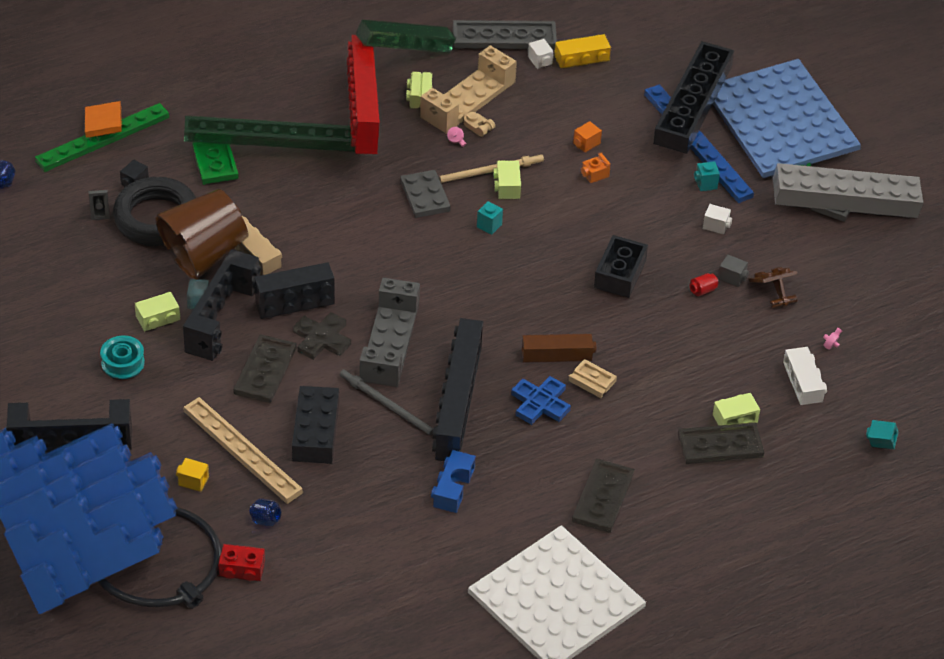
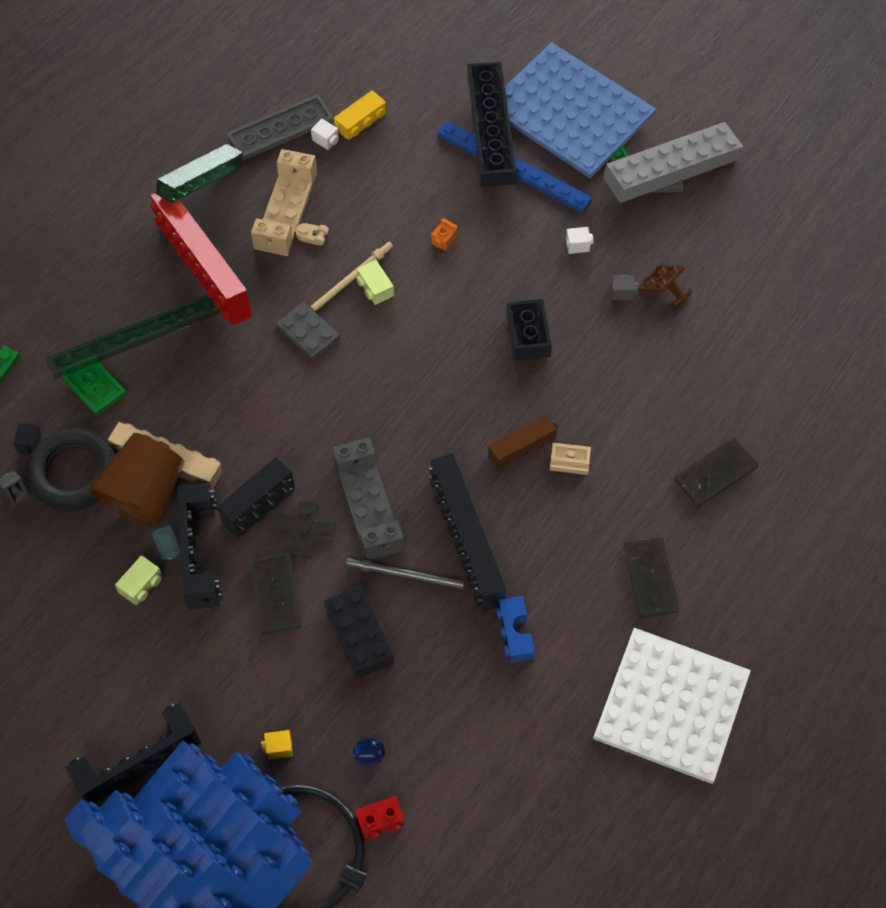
camera: 25 degrees left, 15 degrees up
(122, 357) = (144, 658): teal wheel -> none
(243, 450) = (307, 693): tan plate -> none
(418, 85) = (239, 220): yellowish green brick -> none
(456, 135) = (300, 256): bright pink piece -> none
(489, 217) = (383, 331): teal brick -> none
(540, 400) = (539, 504): blue plate -> none
(587, 136) = (417, 204): orange brick -> none
(703, 284) = (606, 313): red brick -> none
(707, 176) = (545, 199): teal brick -> none
(736, 410) = (710, 433): yellowish green brick -> none
(804, 375) = (744, 368): white brick -> none
(832, 339) = (745, 319): bright pink piece -> none
(882, 434) = (843, 398): teal brick -> none

